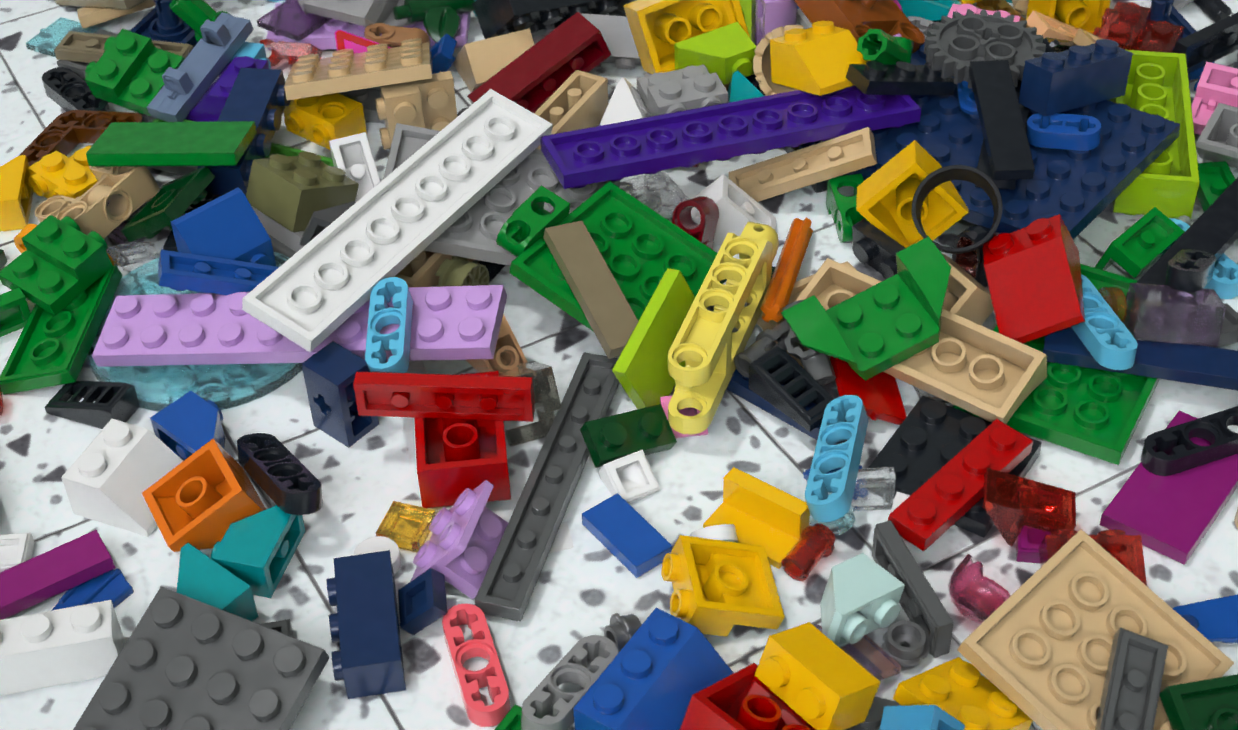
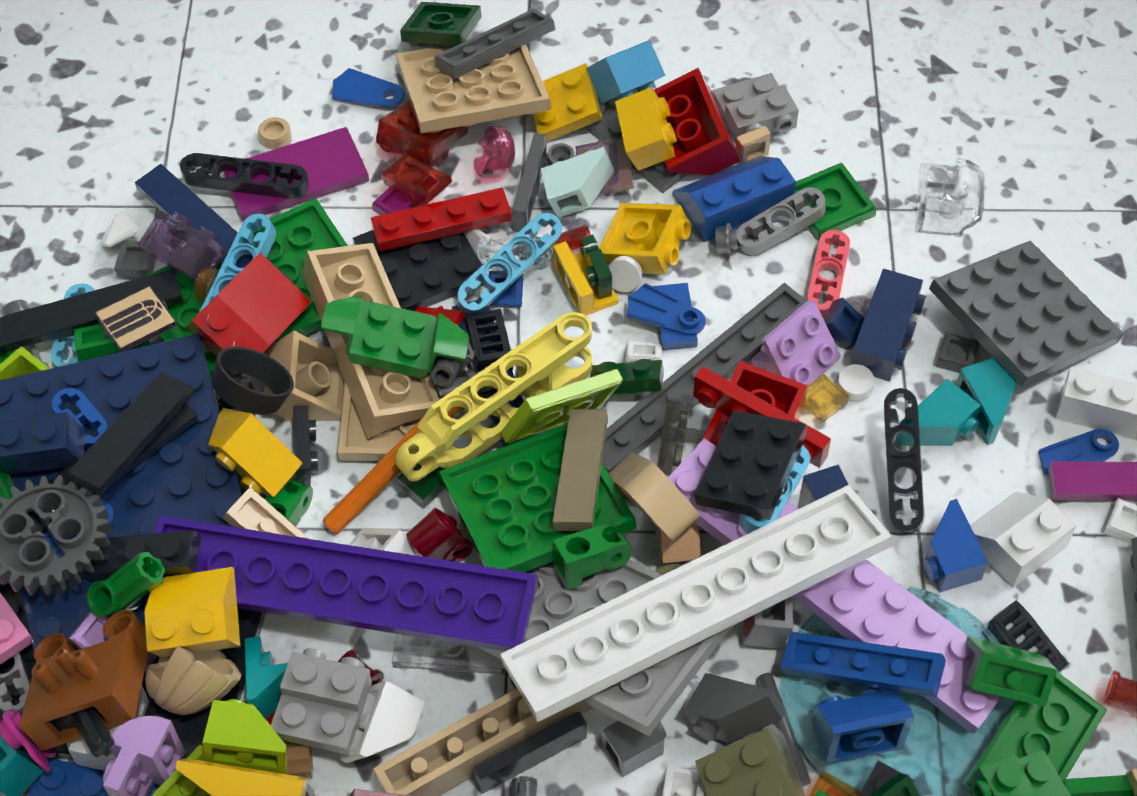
camera: 150 degrees left, 15 degrees up
(99, 332) = (1010, 672): none -> green panel
(202, 498) = (966, 467): orange slope -> none
(420, 319) = (751, 464): none -> black plate
(552, 346) = (654, 494): none -> tan beam
(639, 521) = (664, 311): none -> blue piece
(746, 514) = (597, 270): none -> dark green plate
(1136, 247) = (135, 319): none -> piece
(1190, 270) = (134, 264): black beam -> none

